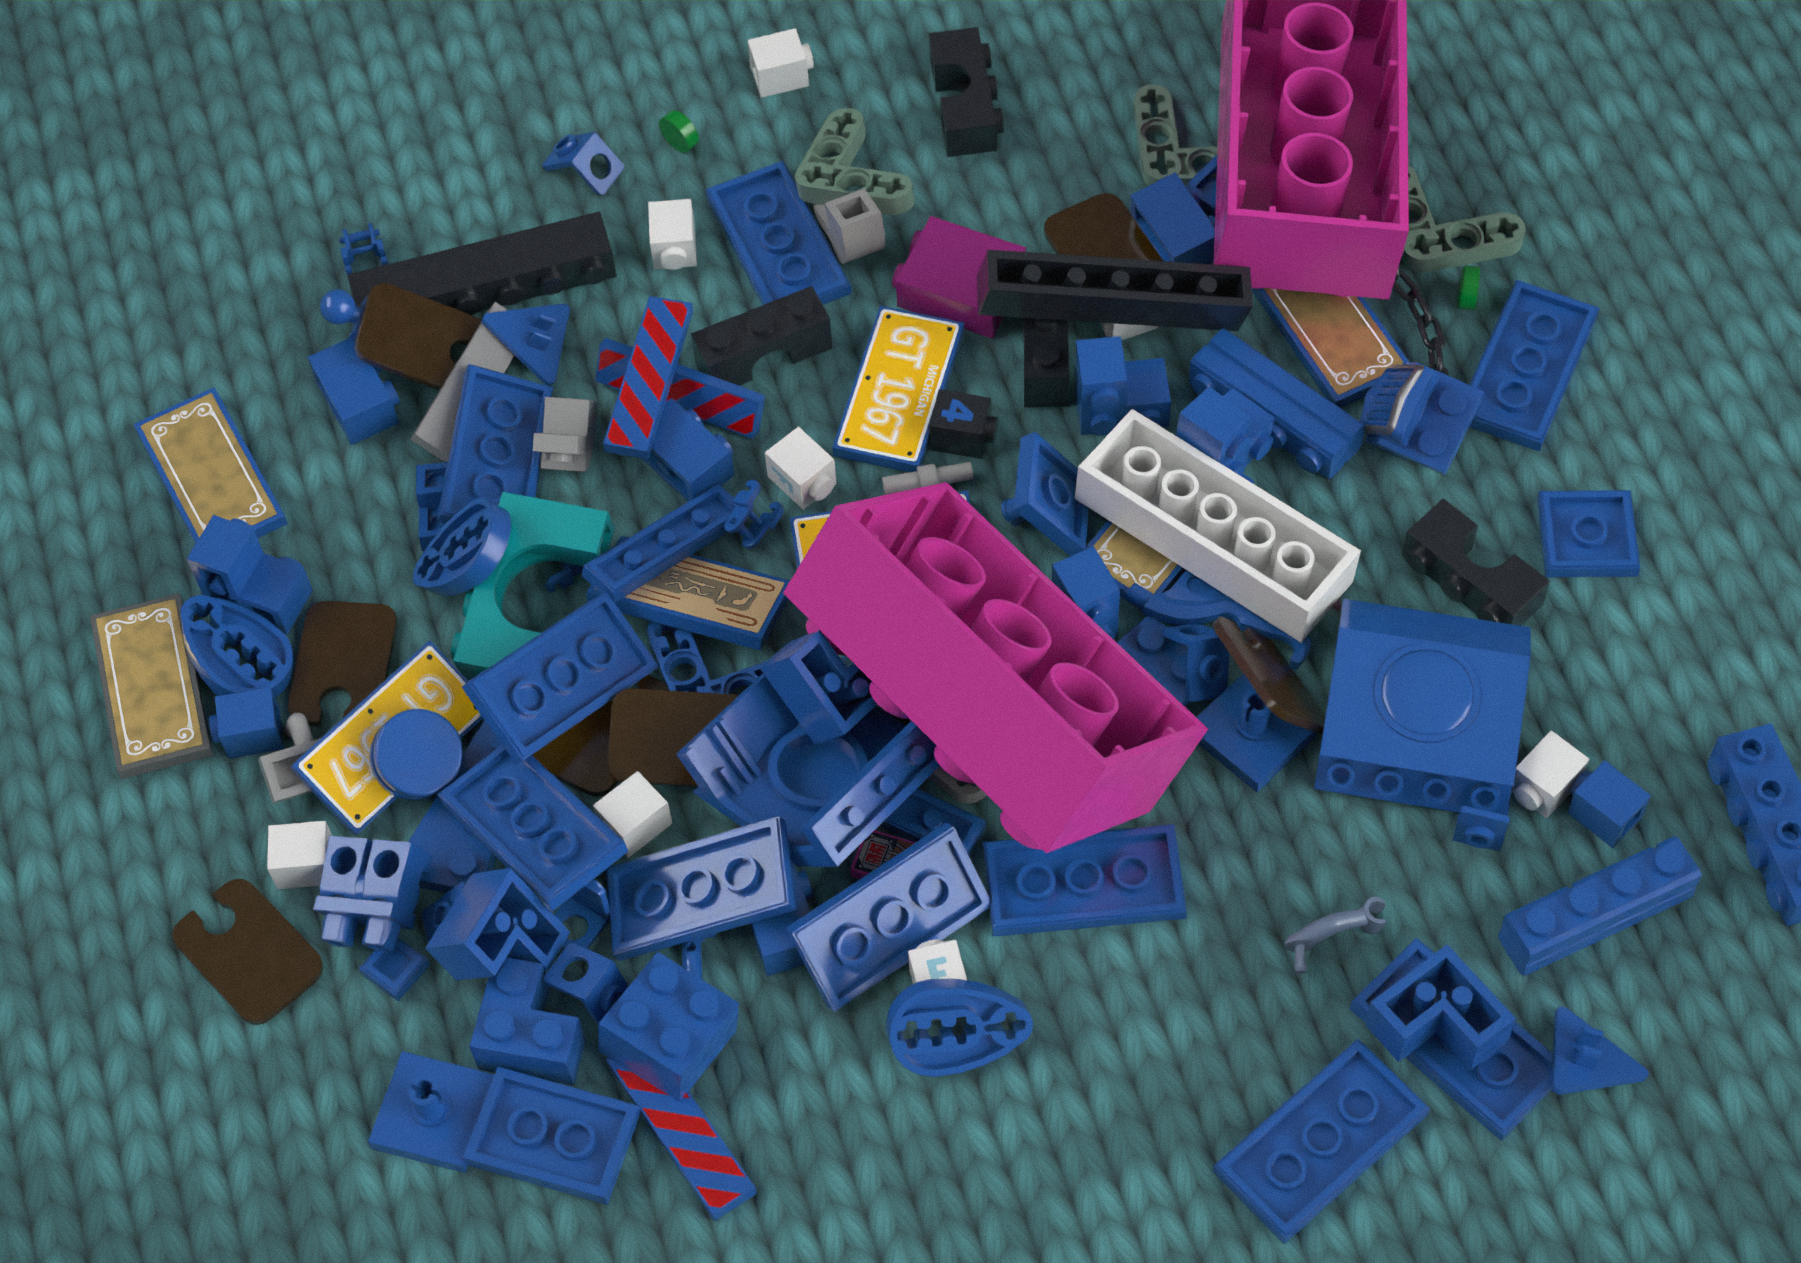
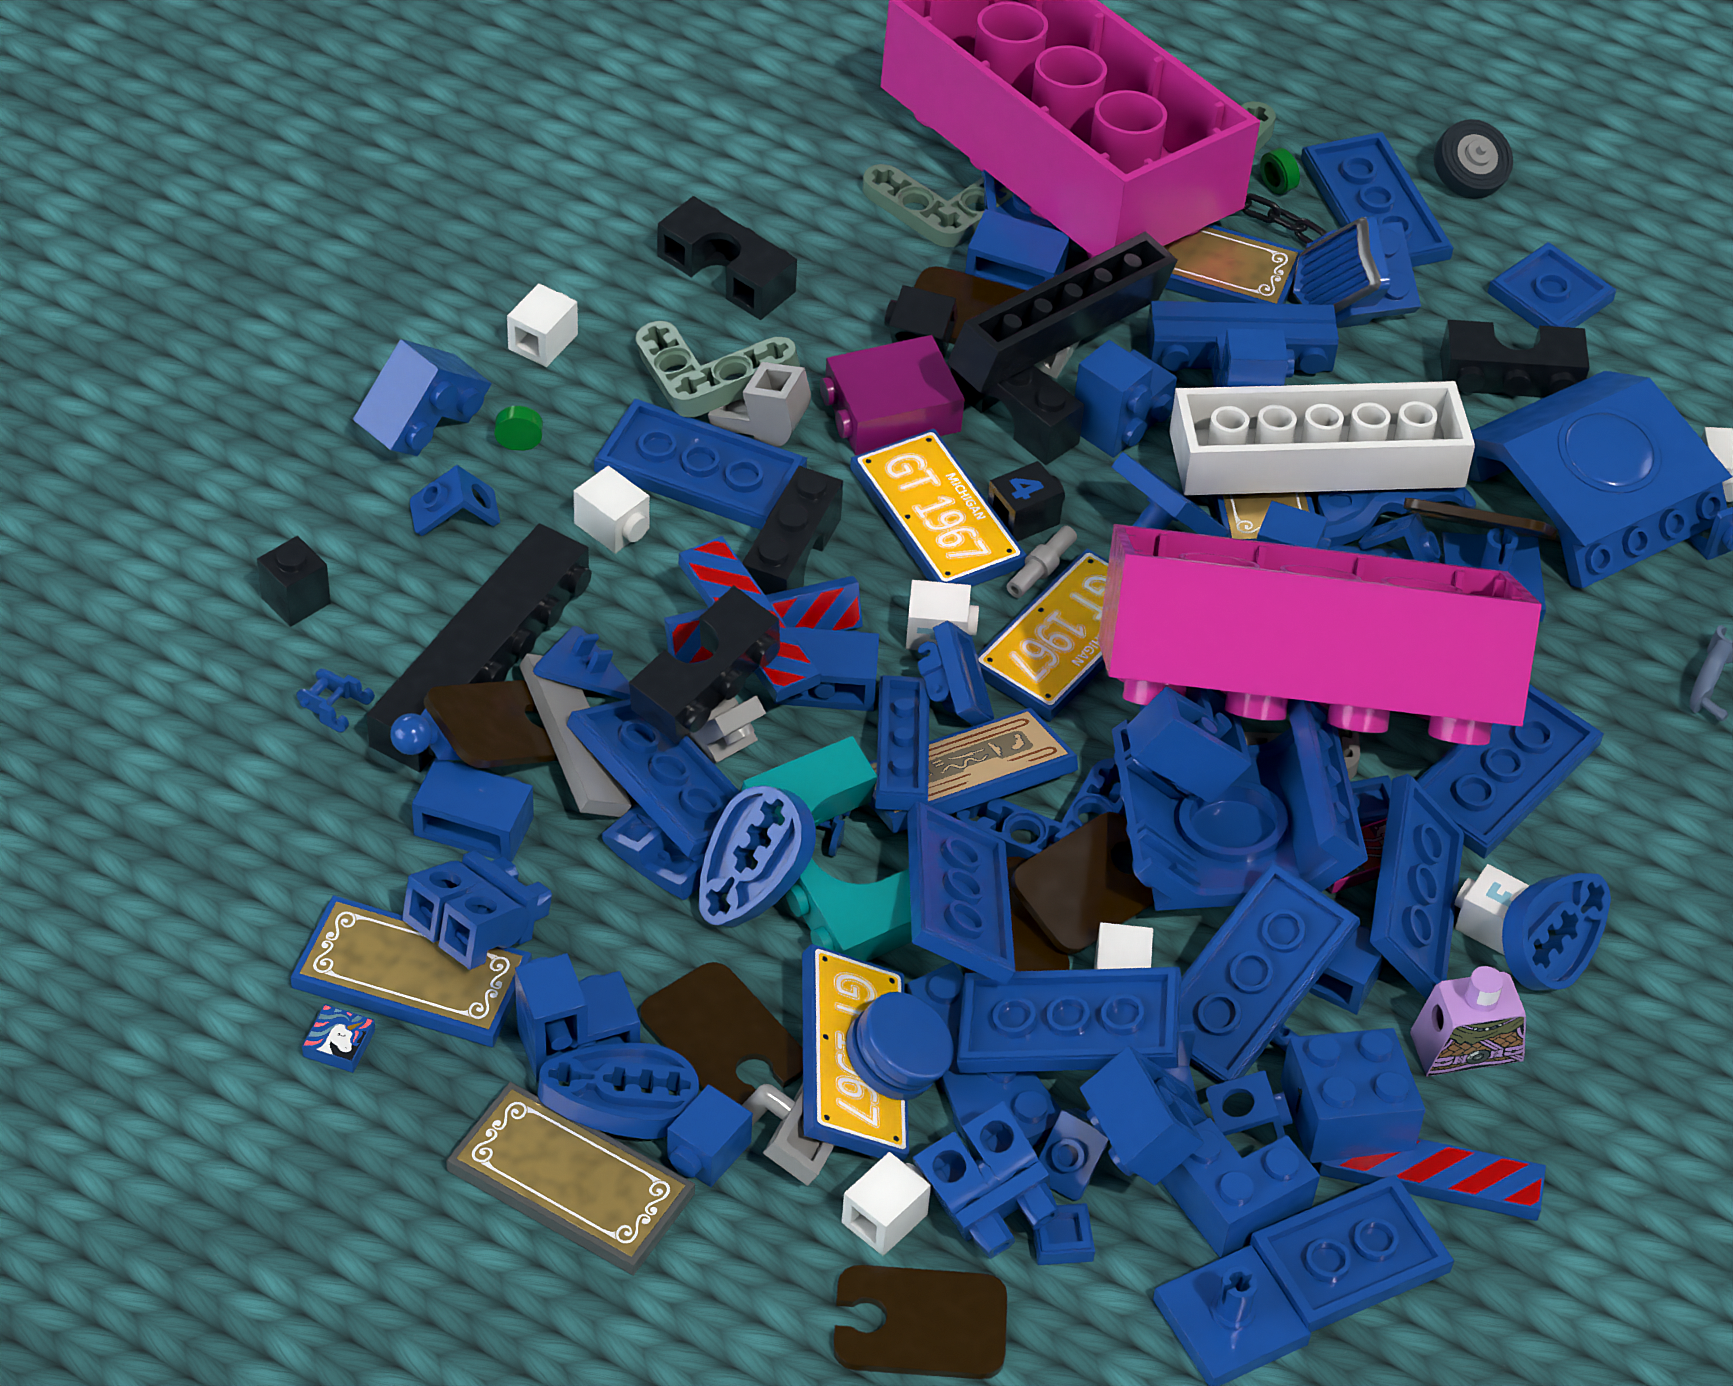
camera: 50 degrees left, 10 degrees down
(122, 486) = (338, 1038): none -> tile
(273, 455) = (474, 906): none -> blue hips
(416, 148) = (293, 580): none -> black brick
(599, 391) = (681, 695): none -> black arch
(631, 57) = (414, 394): none -> blue brick
(762, 522) = (963, 673): none -> blue tile
(809, 1045) = (1471, 1024): none -> lavender torso
(1041, 228) = (922, 314): none -> black brick
(1643, 378) = (1473, 158): none -> black wheel

